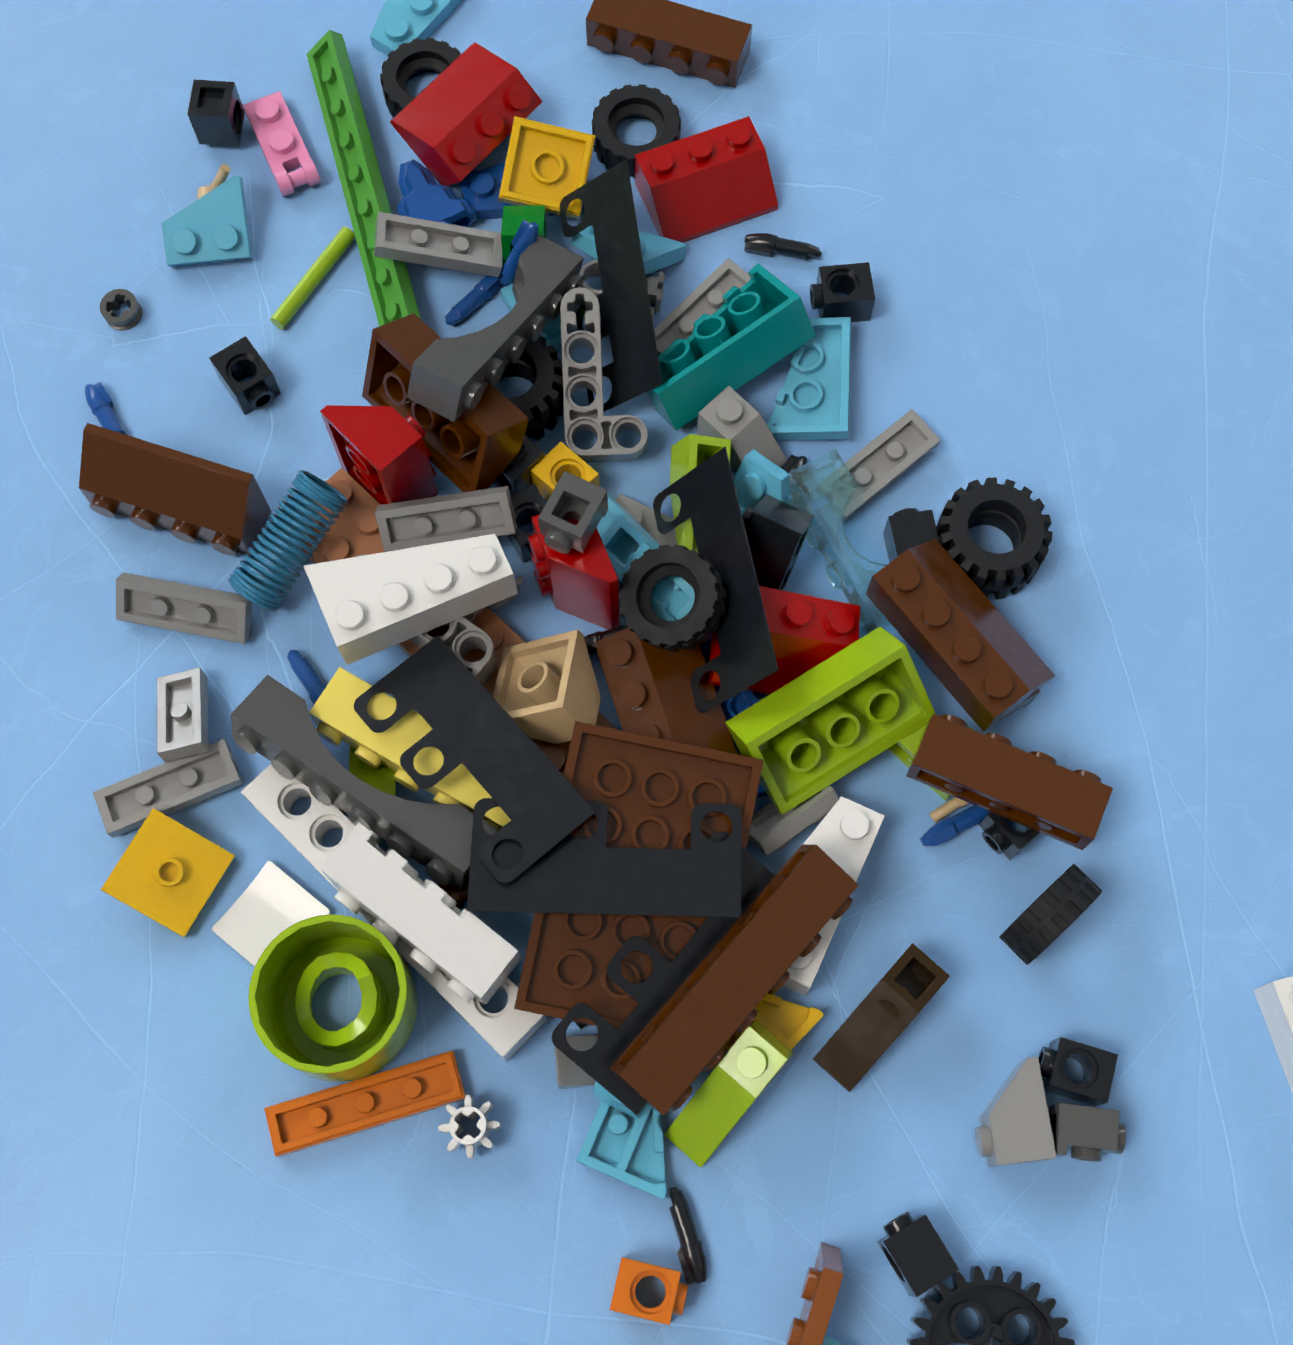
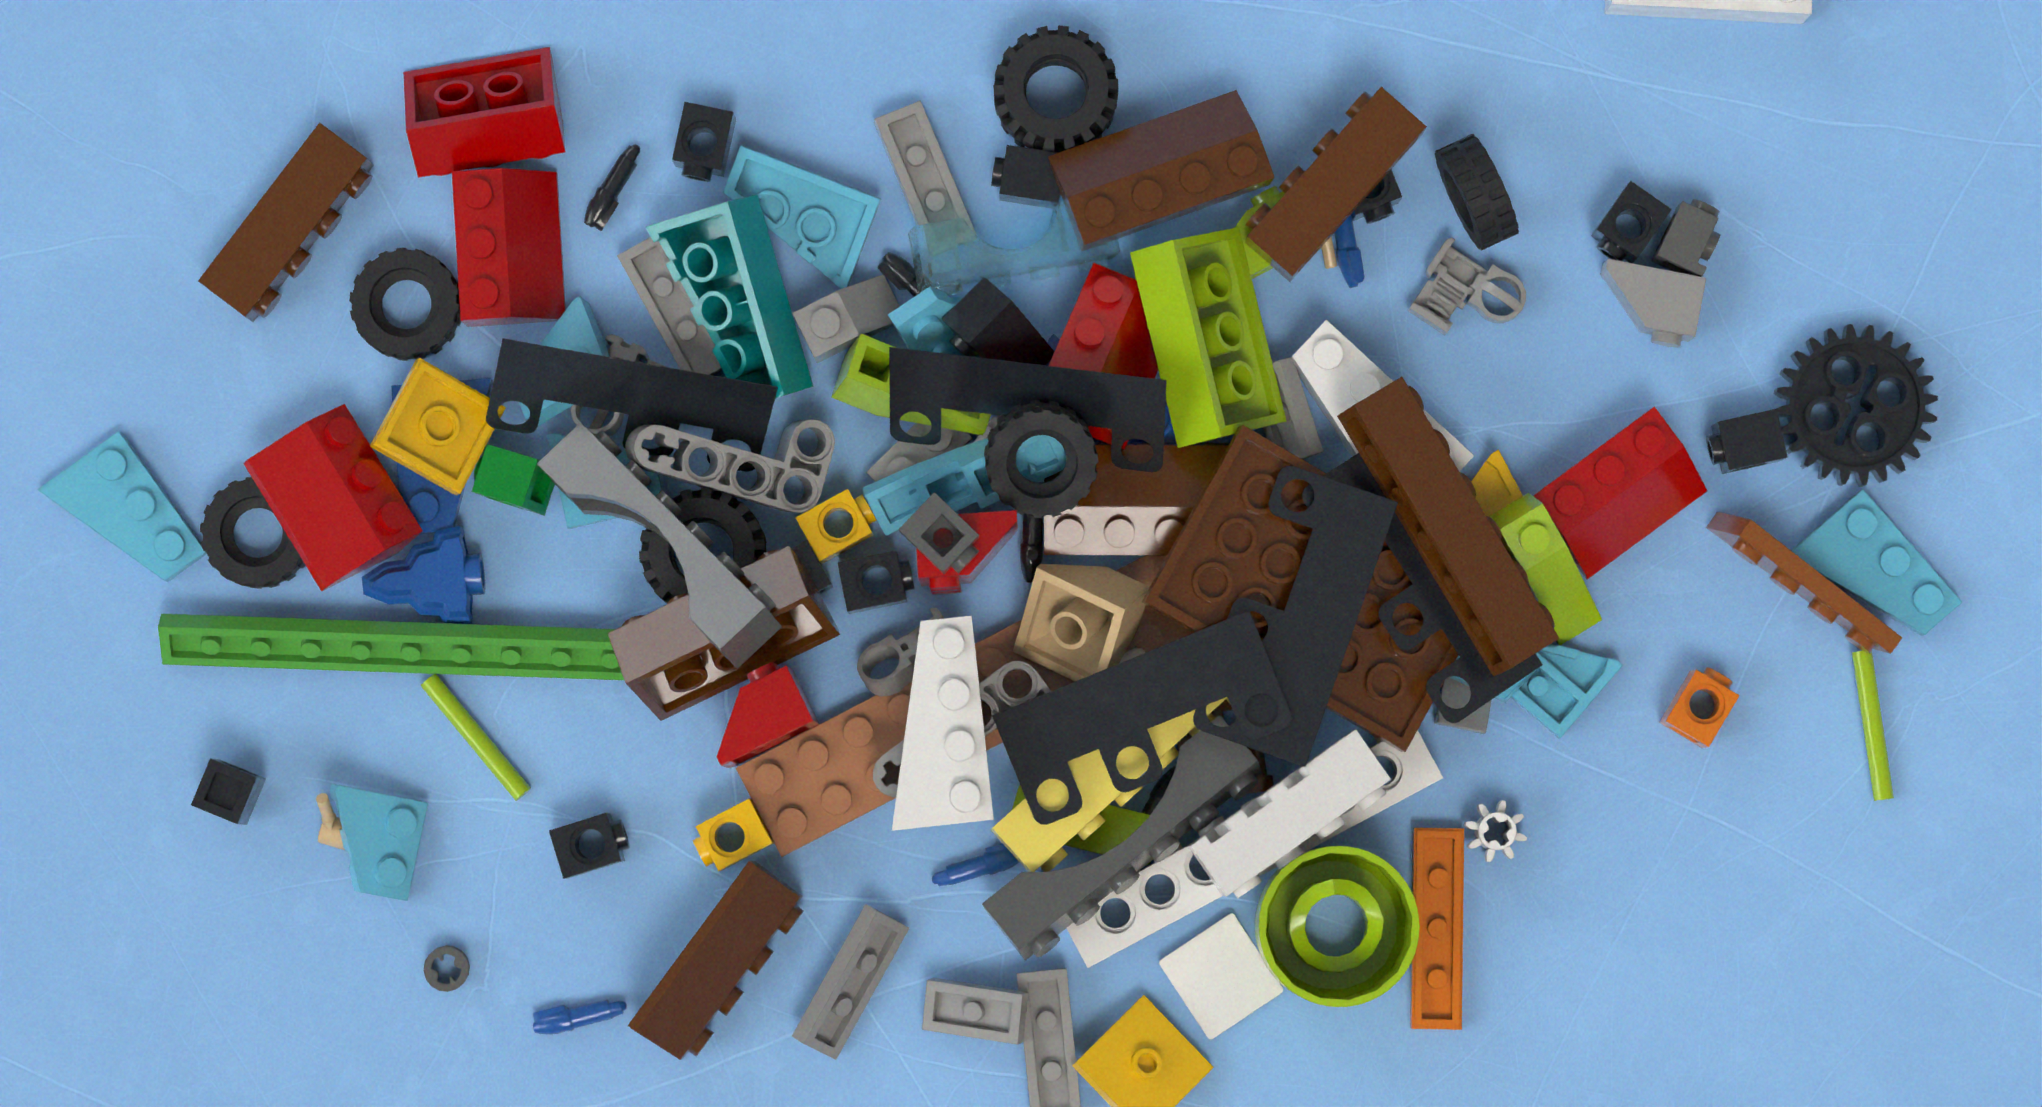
camera: 70 degrees left, 15 degrees up
(270, 466) = (754, 829): none -> yellow brick
(281, 143) = (279, 727): bright pink plate -> none
(294, 516) = (796, 799): dark azure piece -> none
(438, 244) = (502, 580): light grey plate -> none
(446, 518) = (855, 669): light grey plate -> none
(481, 293) = (559, 550): blue piece -> none
(523, 238) = (543, 488): blue piece -> none
(691, 1251) = (1677, 655): black piece -> none
(803, 138) = (483, 112): none -> red slope
(825, 1143) = (1621, 492): none -> red slope
(881, 1017) = (1519, 395): dark brown slope -> none
(962, 929) = (1455, 281): none -> light grey piece

